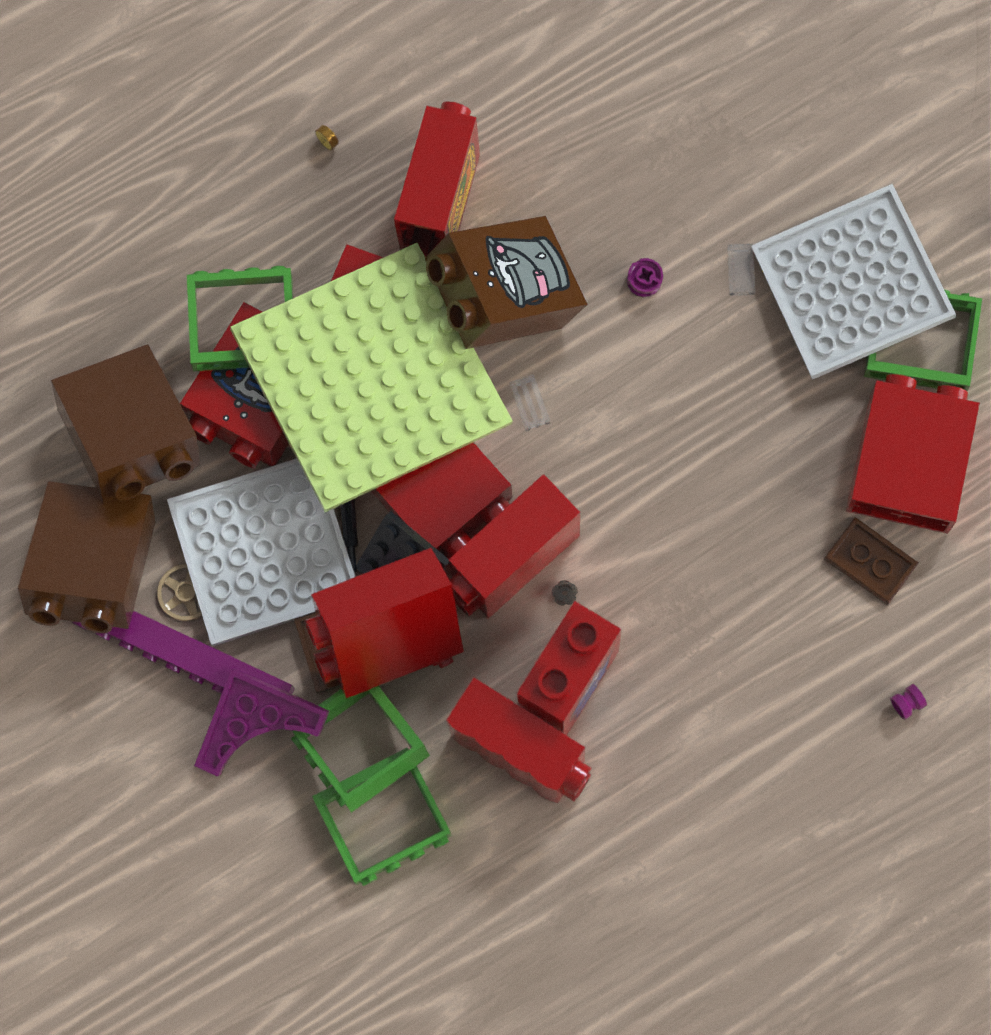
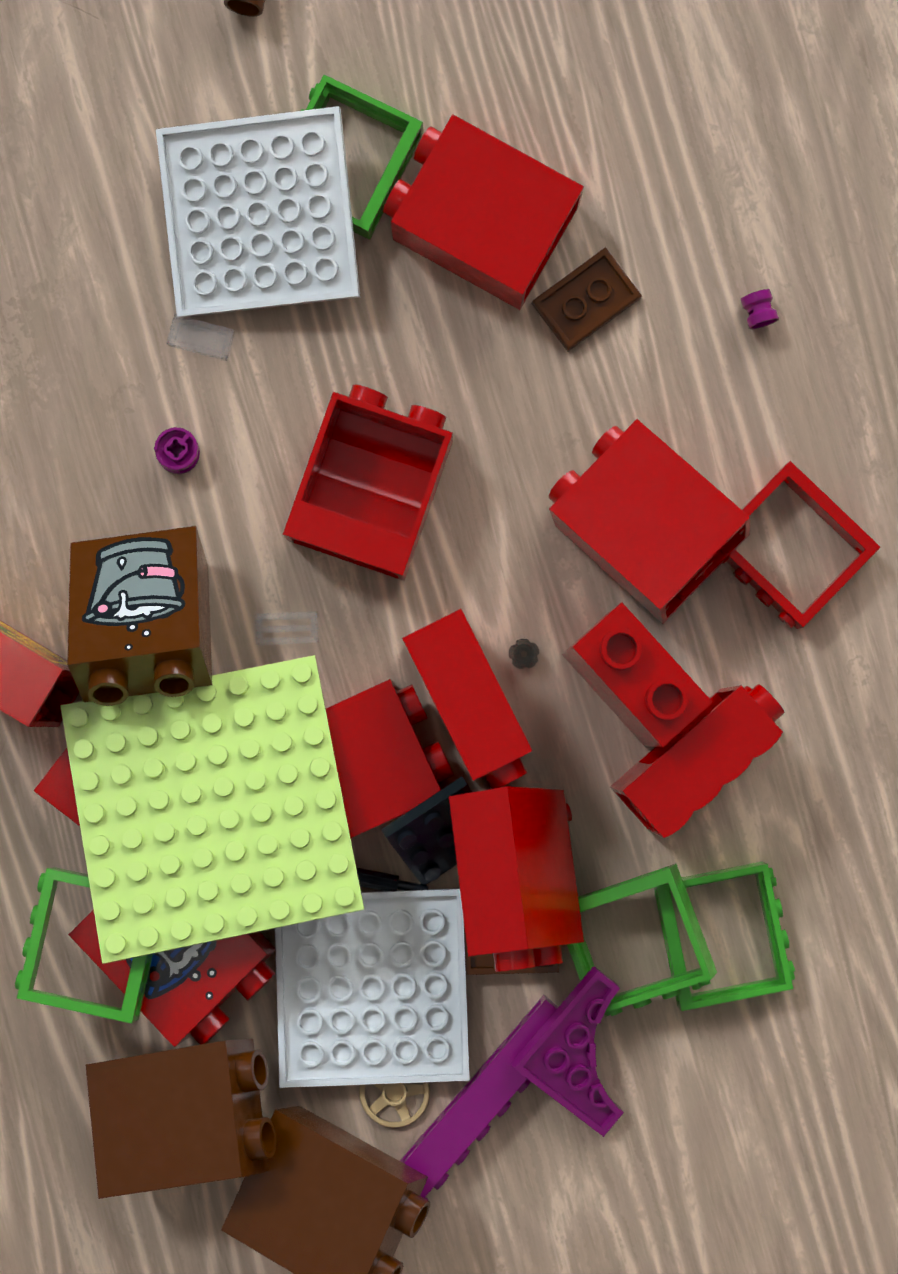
camera: 80 degrees left, 10 degrees up
(664, 429) = (370, 482): none -> red brick
(673, 774) = (831, 515): none -> red window
(701, 653) = (648, 518): none -> red brick

